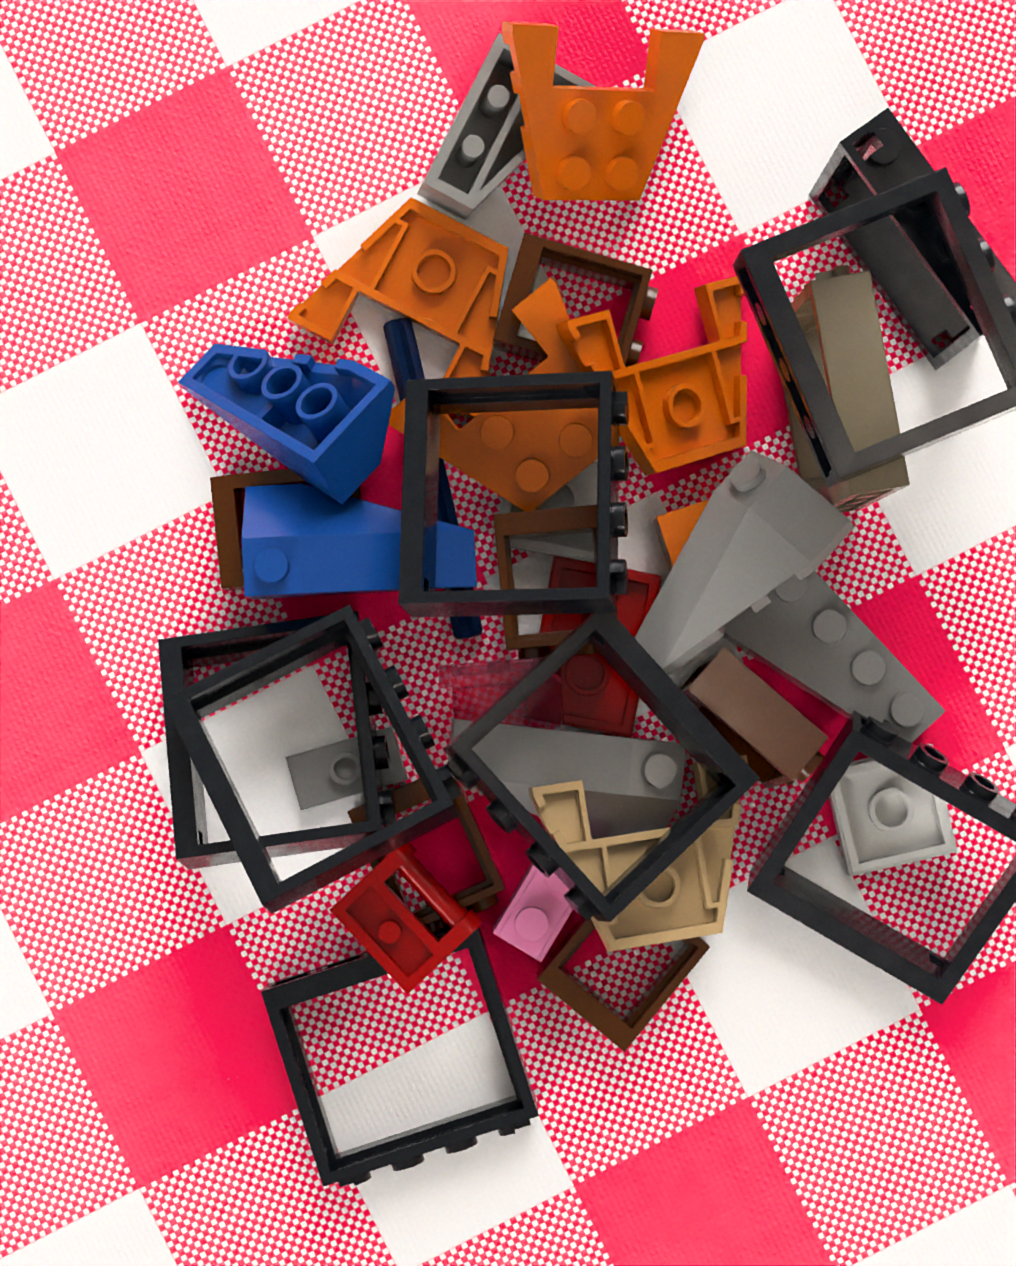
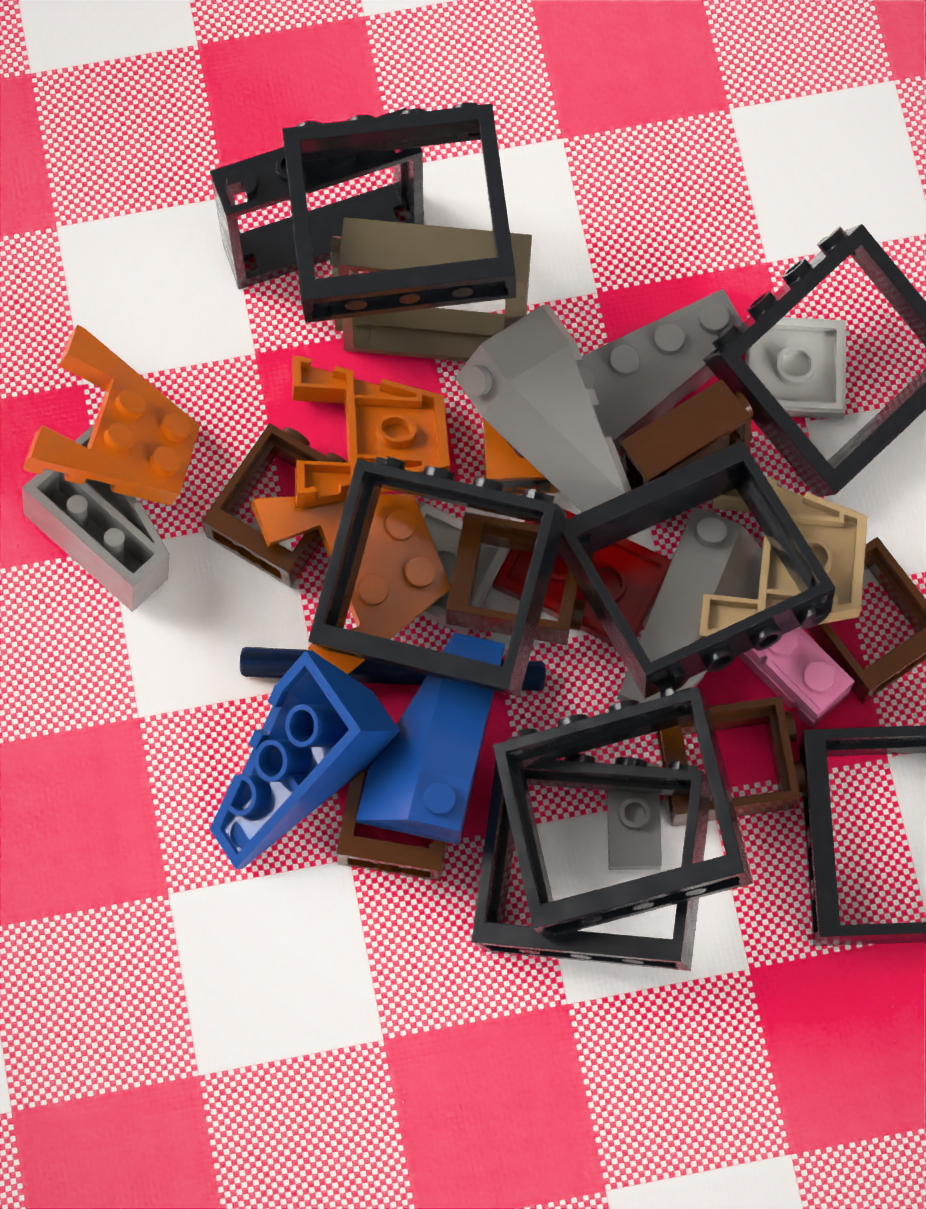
camera: 75 degrees left, 15 degrees down
(392, 930) = (792, 797): red plate -> none
(425, 272) = (204, 623): orange wing -> none
(482, 683) = (596, 665): clear pink panel -> none

